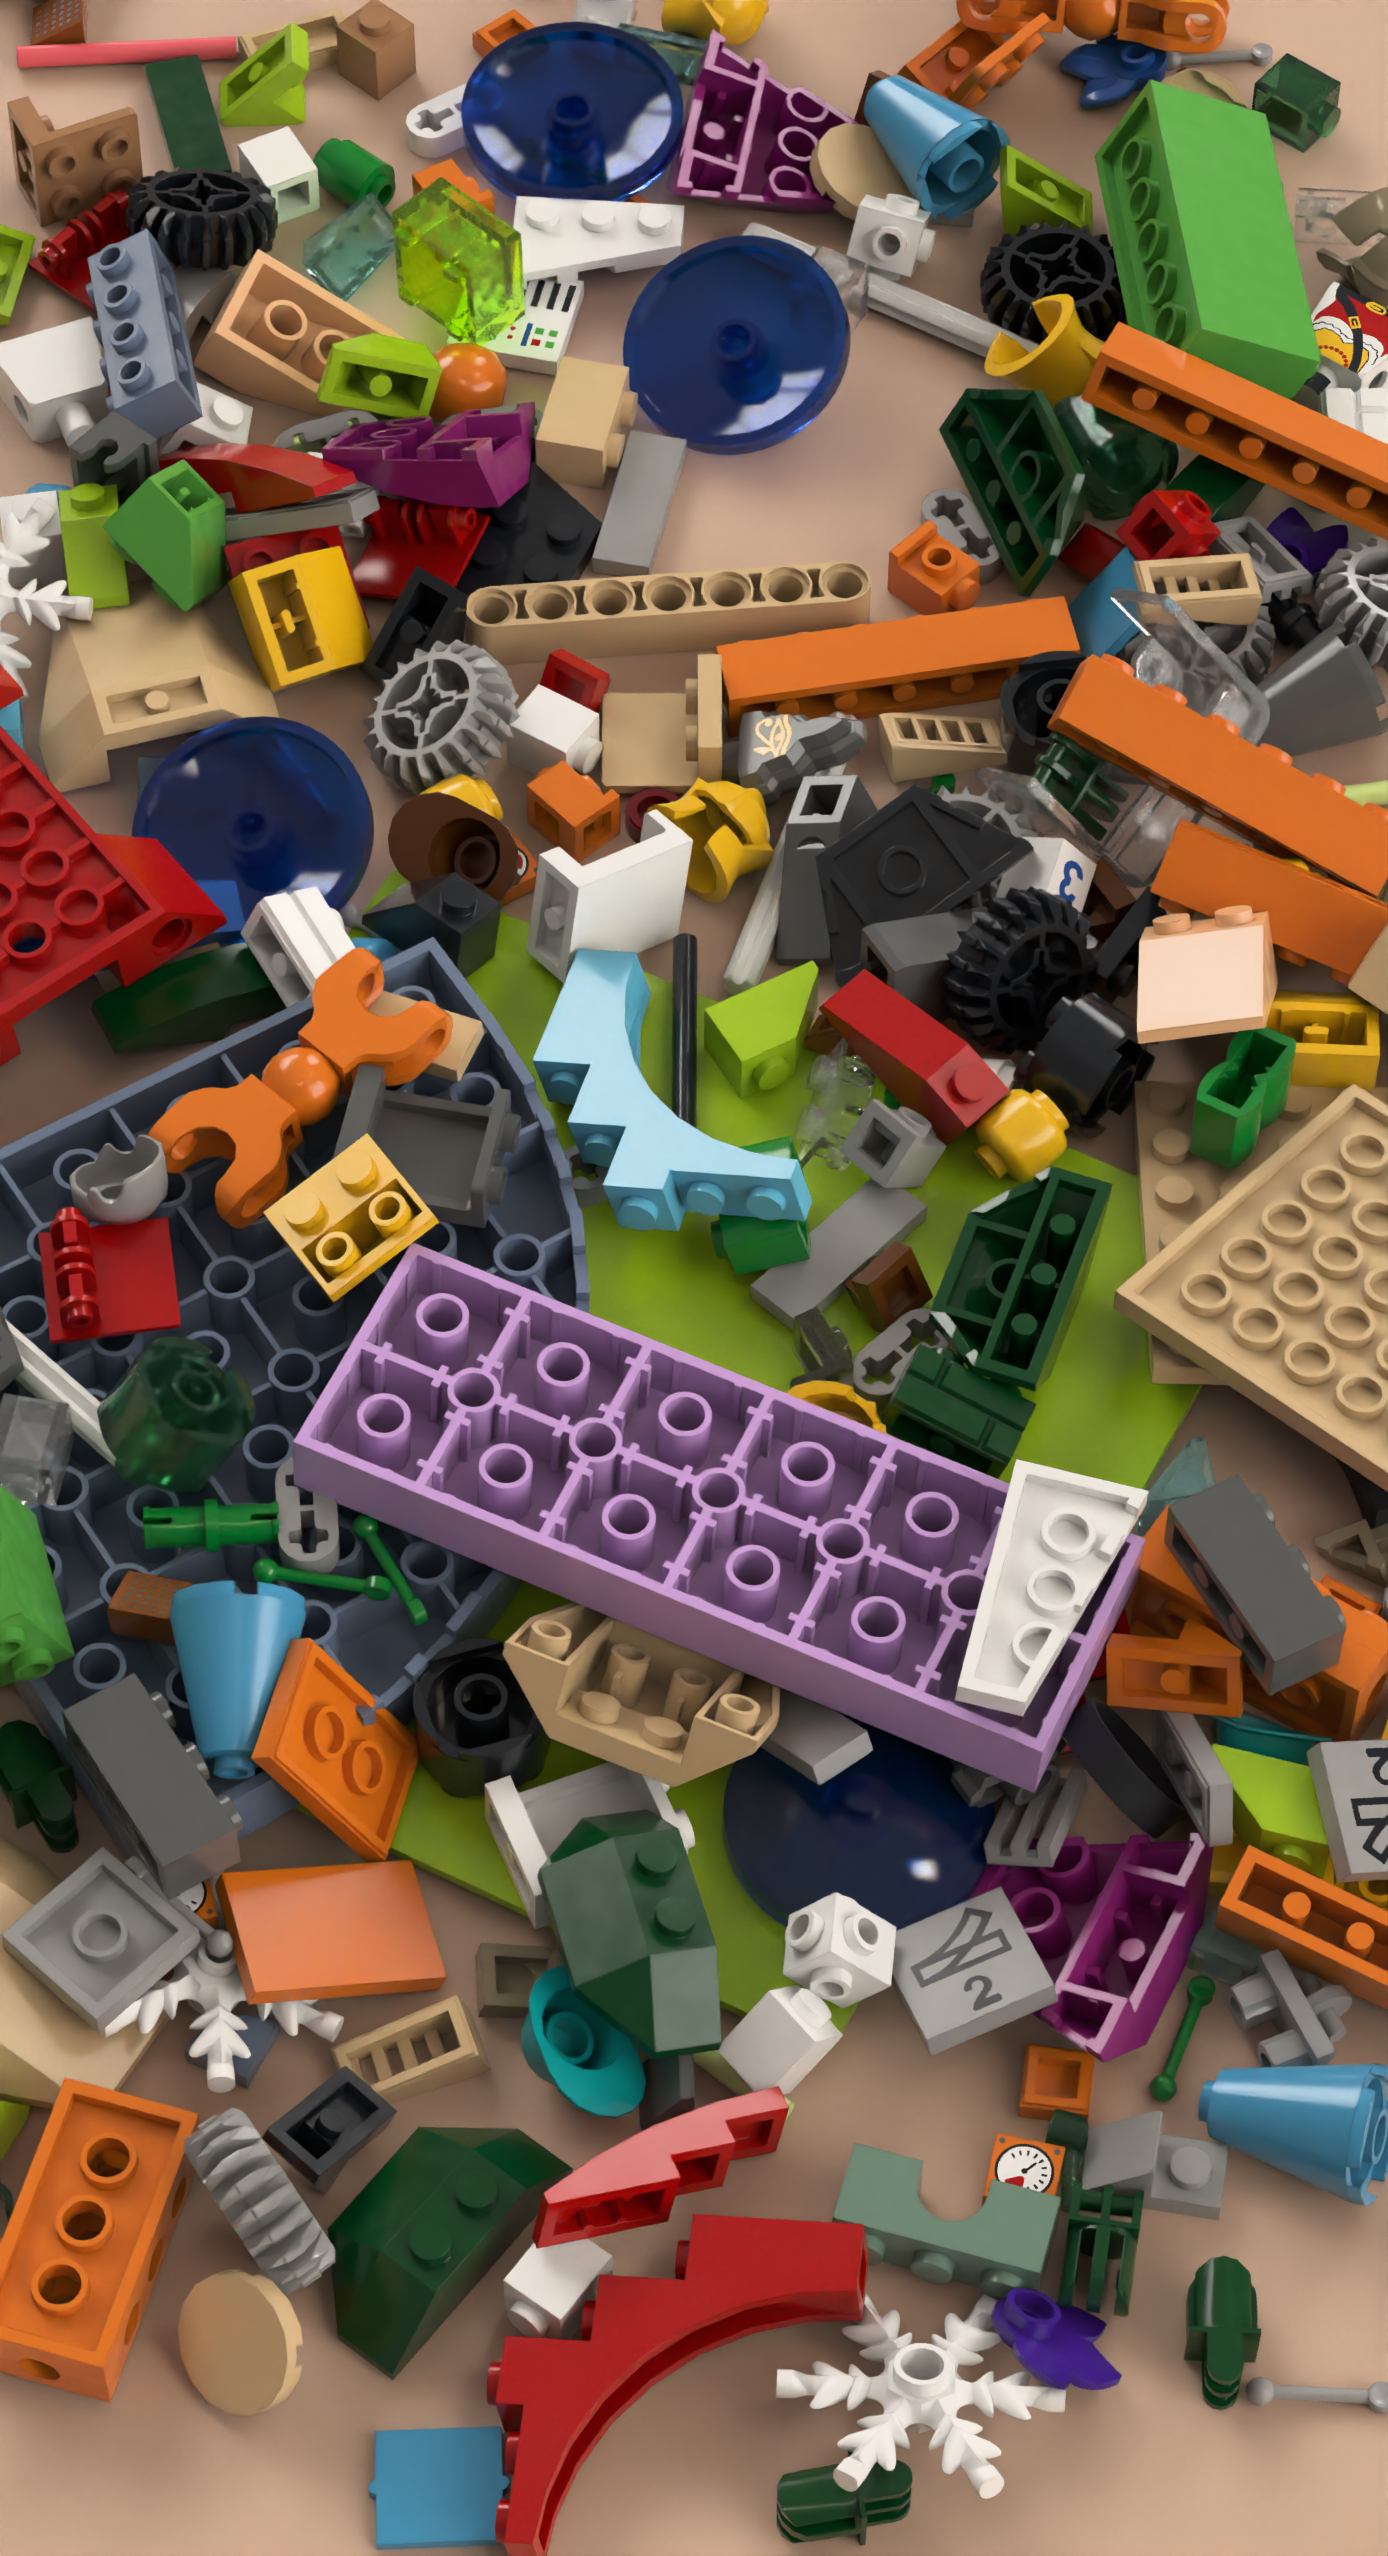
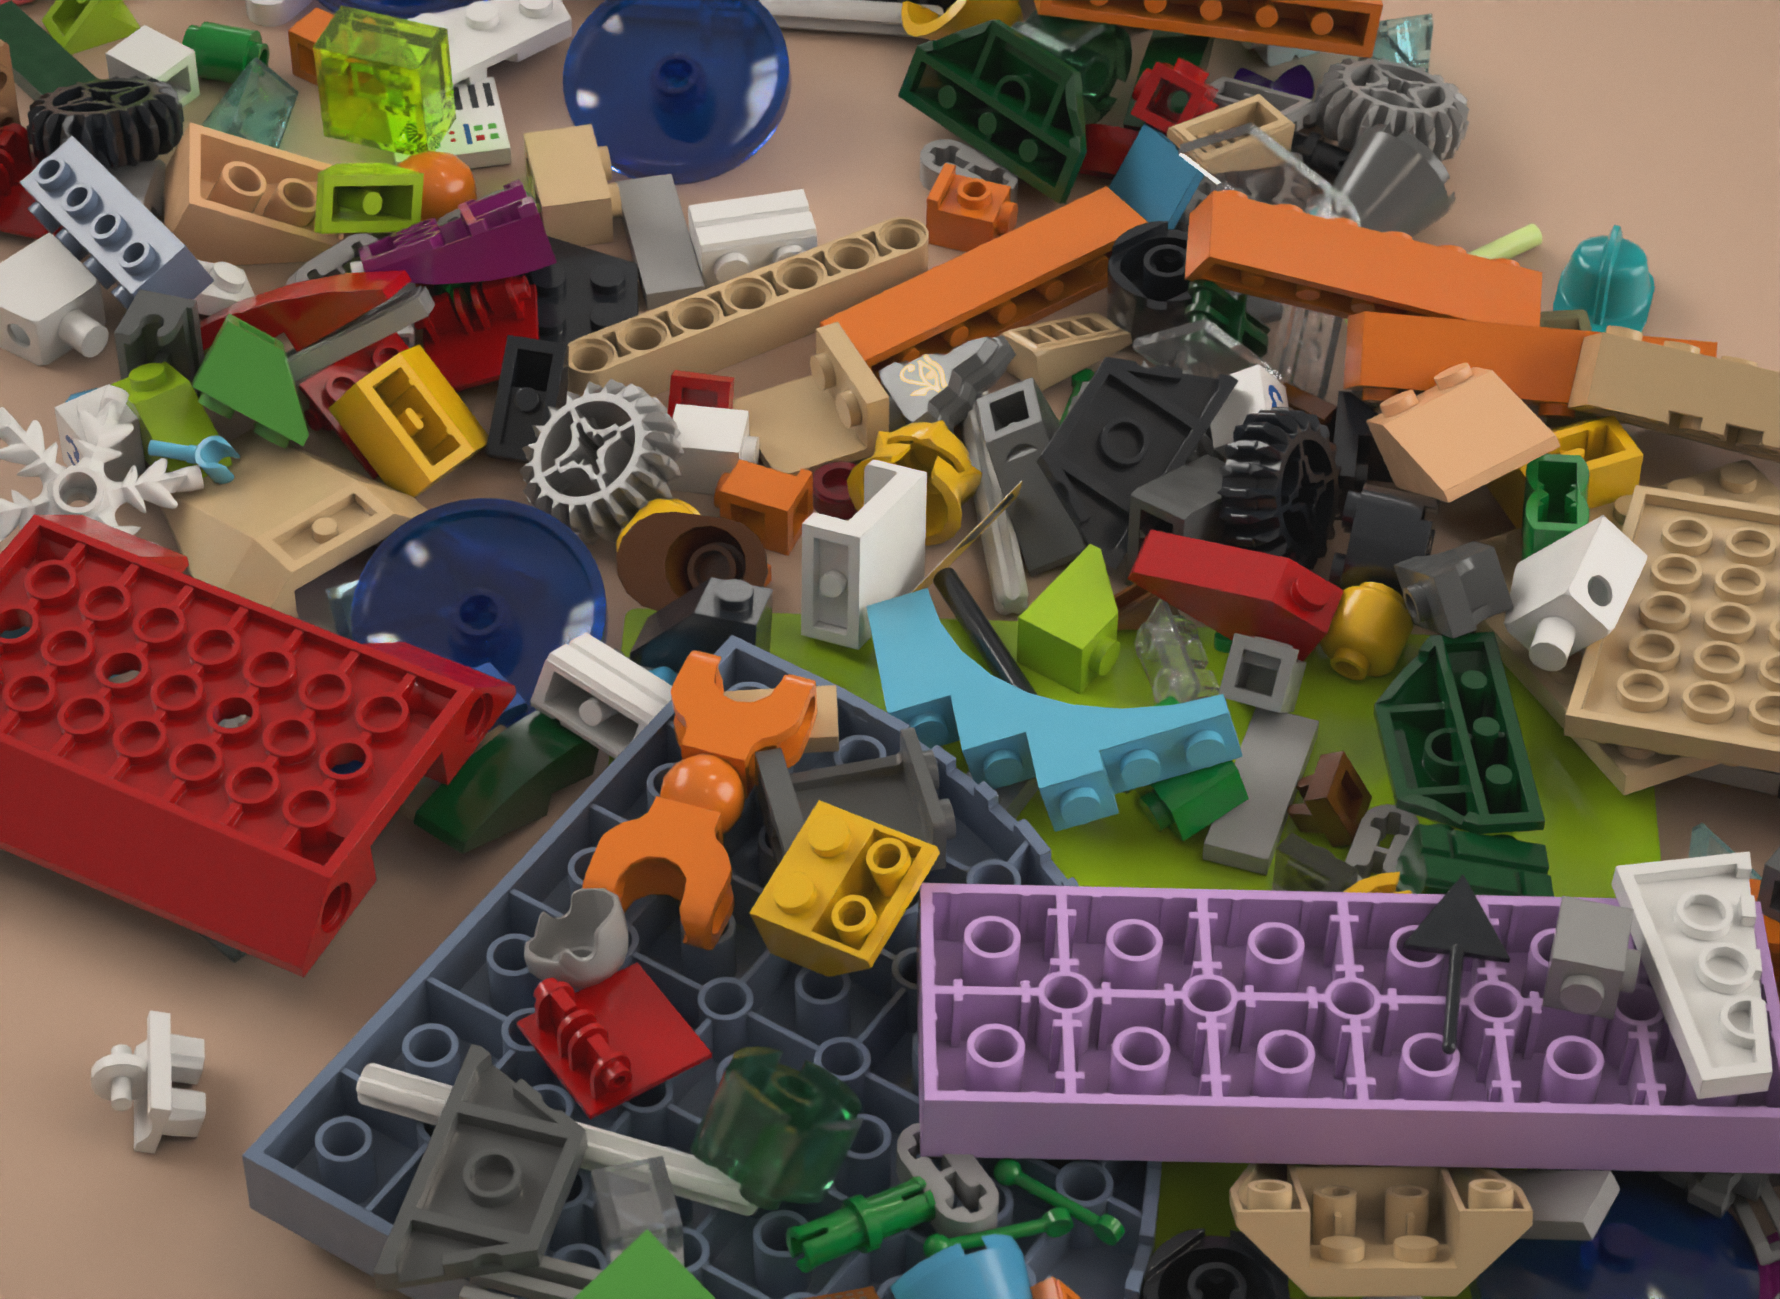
camera: 25 degrees left, 10 degrees down
(99, 591) = (205, 455): none -> medium azure hand
(715, 530) = (749, 233): none -> white brick
(715, 916) = (971, 537): none -> yellow sticker
(847, 1463) = (1458, 930): none -> black piece
(936, 1535) = (1590, 958): none -> light grey brick
(1096, 1130) = (1454, 588): none -> dark grey brick
(1195, 1176) = (1572, 592): none -> white torso

